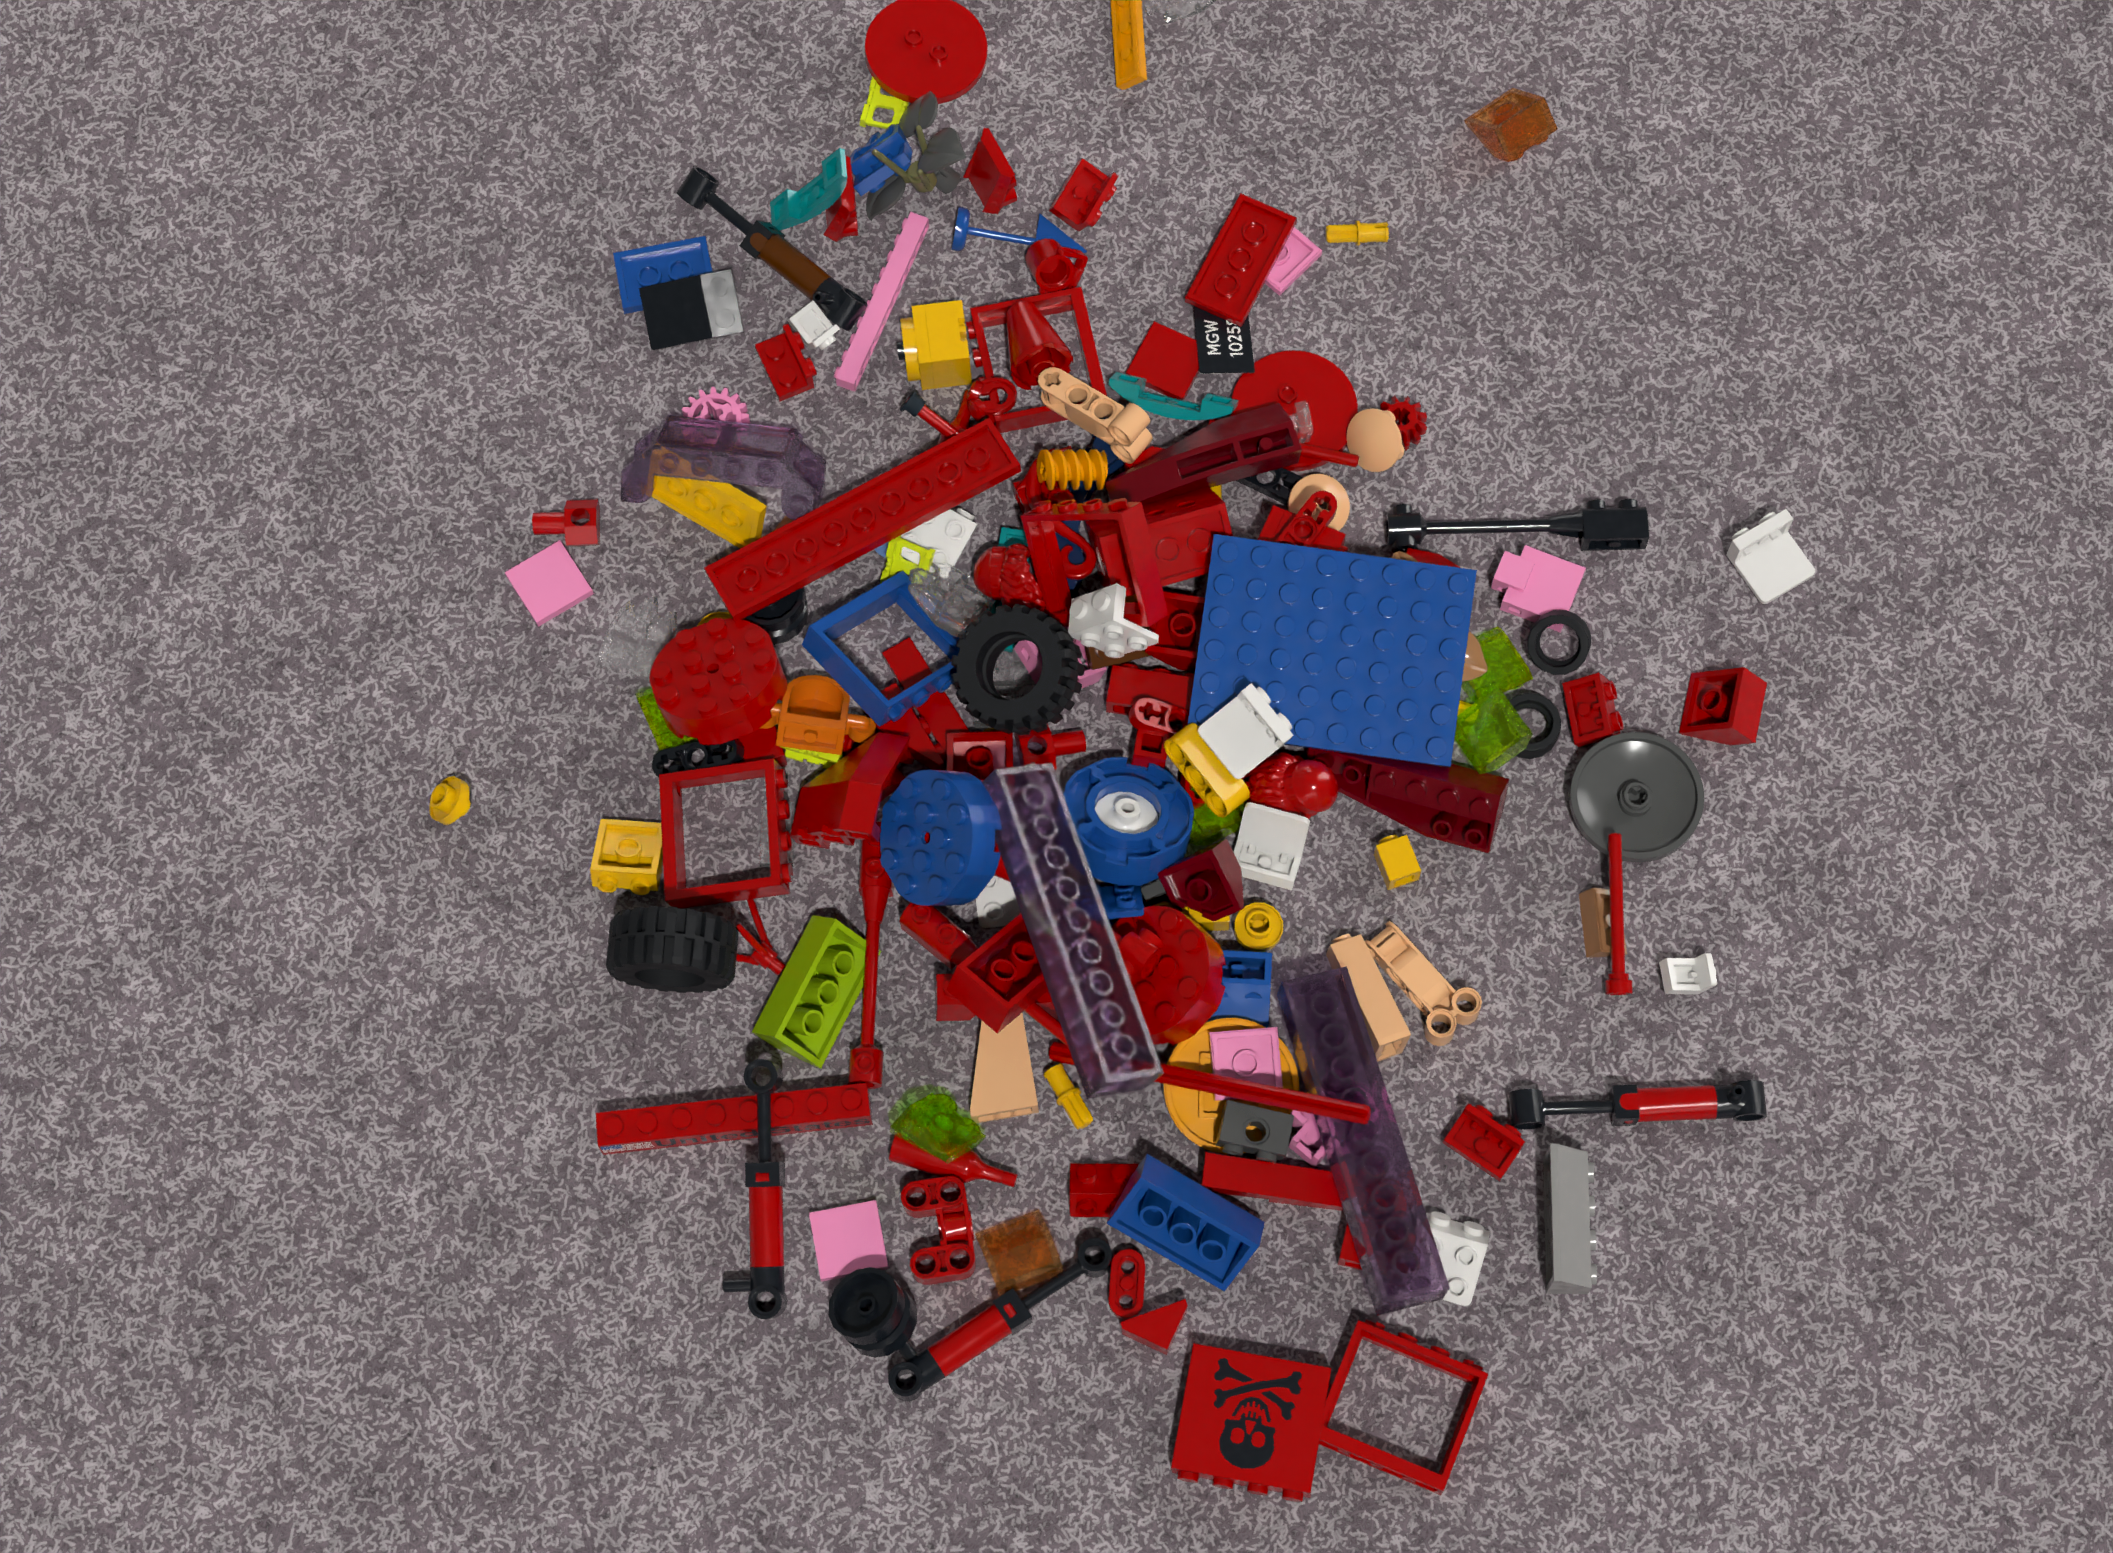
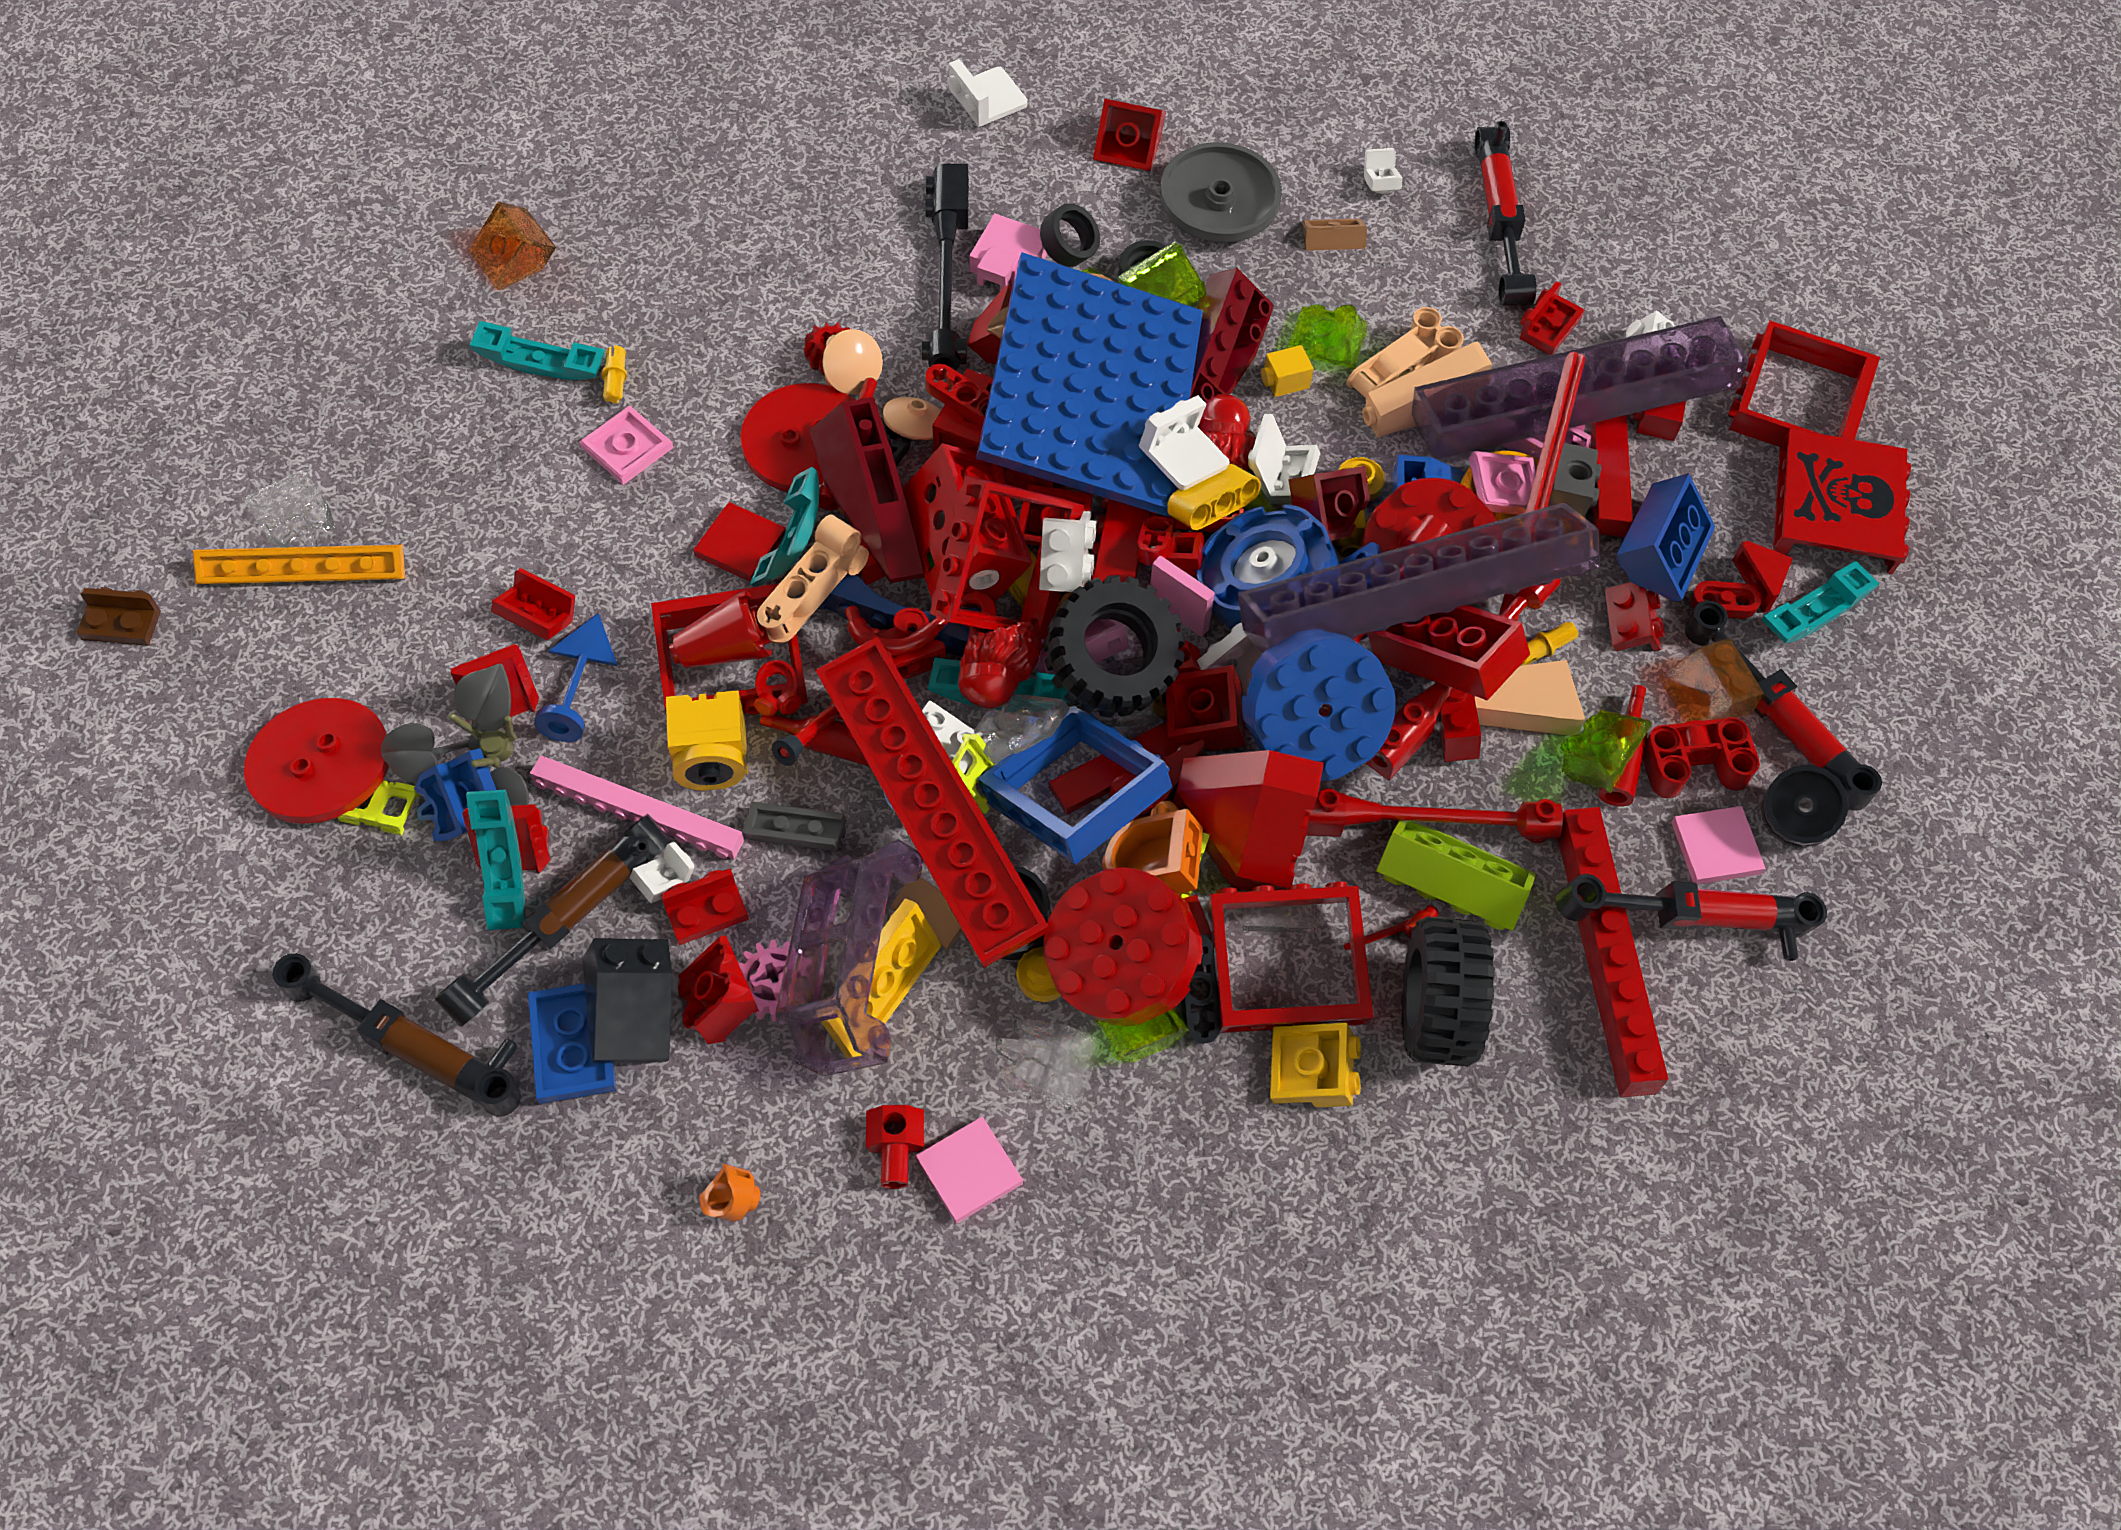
camera: 95 degrees left, 10 degrees down
(449, 800) = (1255, 1272): yellow plate -> none
(528, 404) = (730, 1194): none -> orange piece
(675, 141) = (393, 1033): none -> black piece
(697, 376) = (715, 993): none -> red slope
(862, 428) = (795, 826): none -> dark grey hinge
(1052, 266) = (620, 632): red piece -> none
(1072, 467) = (879, 599): light orange piece -> none
(1104, 740) = (1188, 596): none -> bright pink tile
(1120, 1377) = (1821, 605): none -> teal slope
(1222, 345) = (719, 491): black sticker -> none
(1240, 260) = (633, 469): red tile -> none
(1302, 421) = (833, 395): clear plate -> none
(1378, 161) = (534, 357): none -> teal slope
(1450, 908) = (1330, 335): none -> clear neon green slope
(1568, 1220) = (1620, 267): light grey slope -> none
(1592, 709) = (1132, 223): red bracket -> none
(1618, 981) = (1392, 220): red piece -> none

